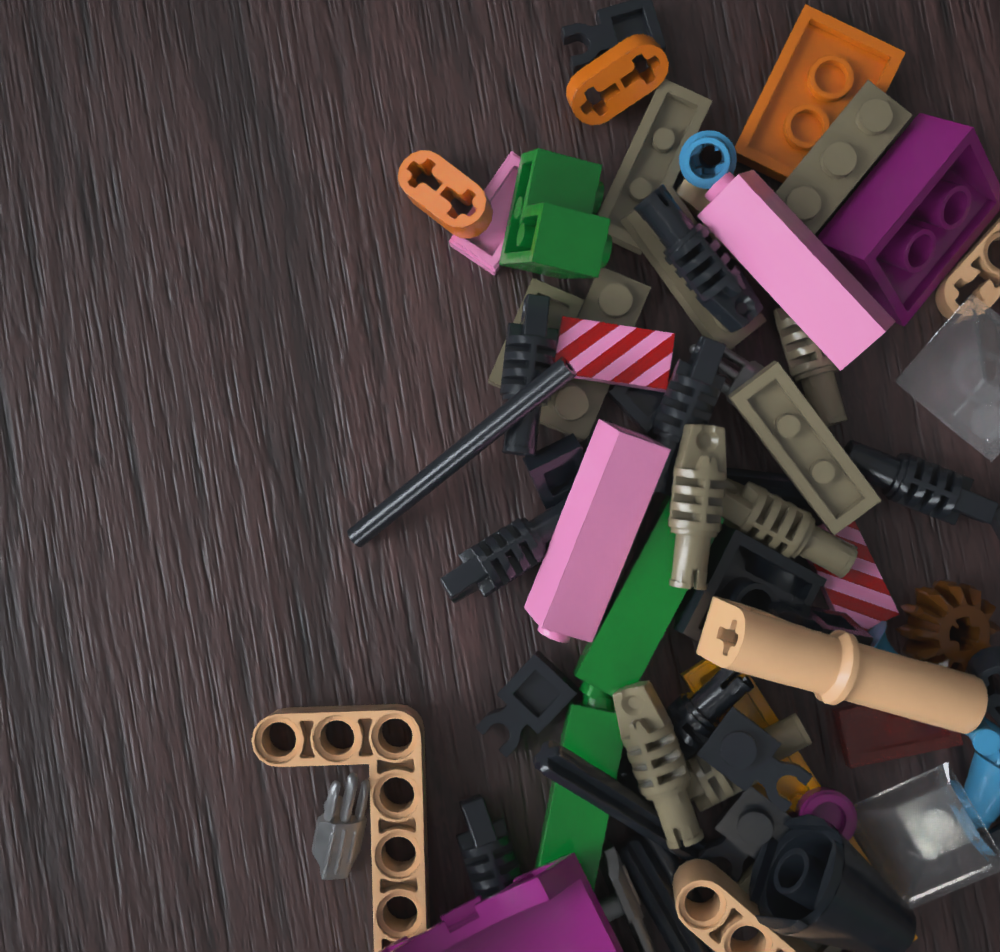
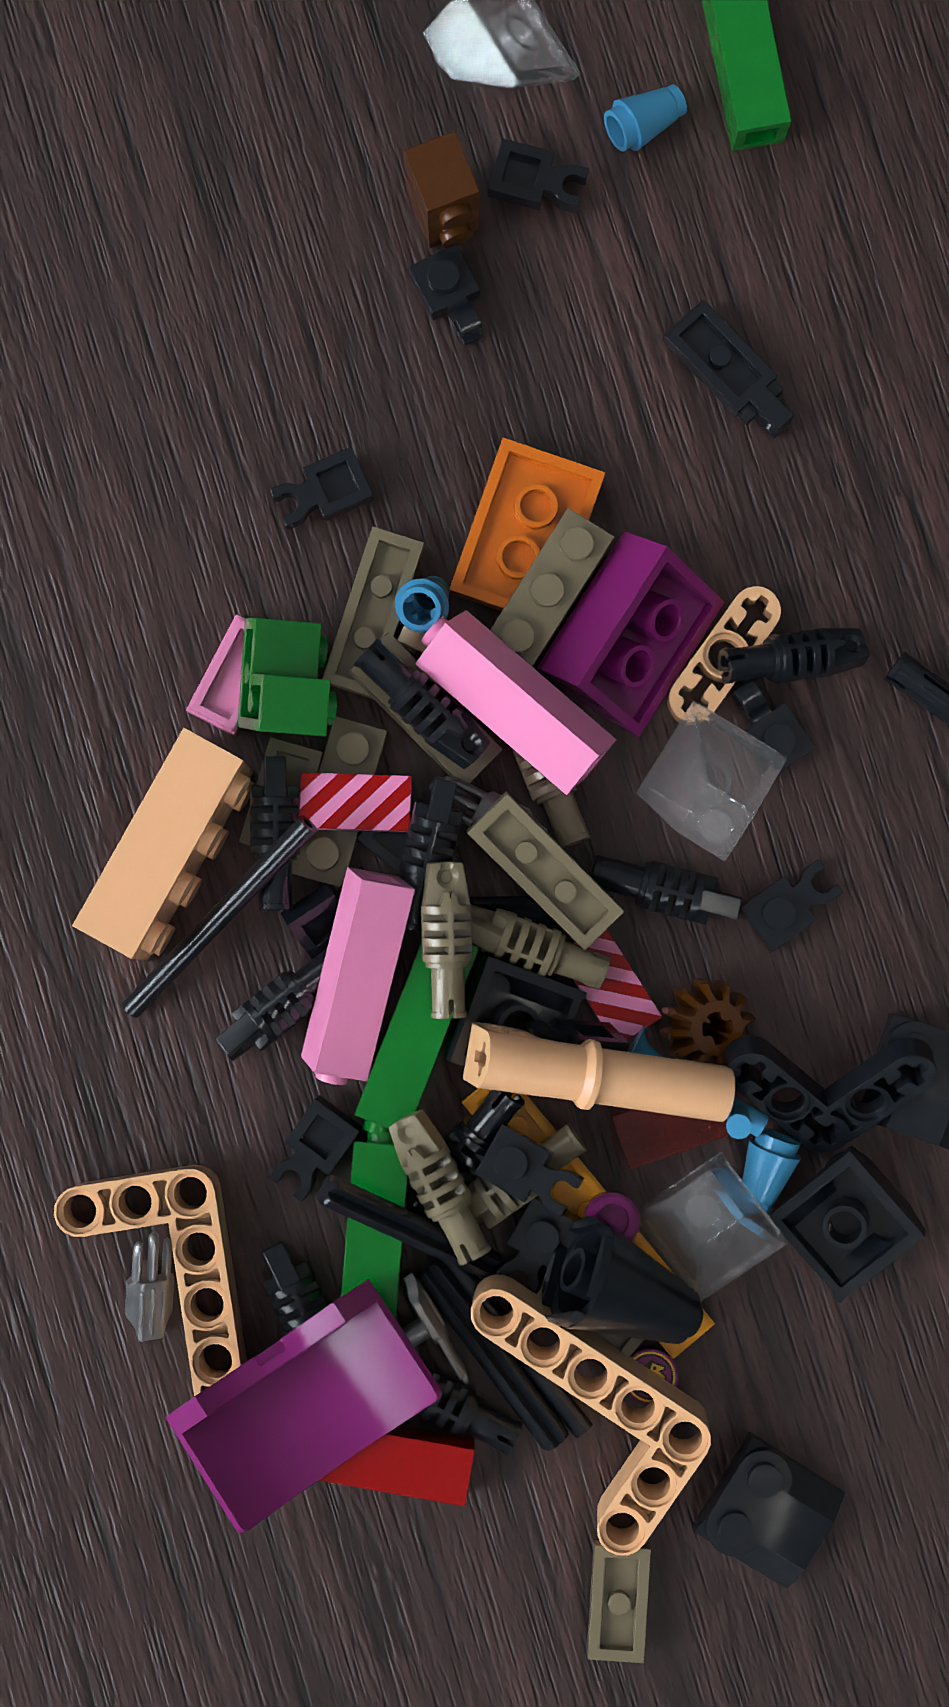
camera: 10 degrees left, 0 degrees up
(415, 371) = (165, 848): none -> light nougat brick
(452, 185) = (170, 674): orange beam -> none
(617, 79) = (328, 534): orange beam -> none

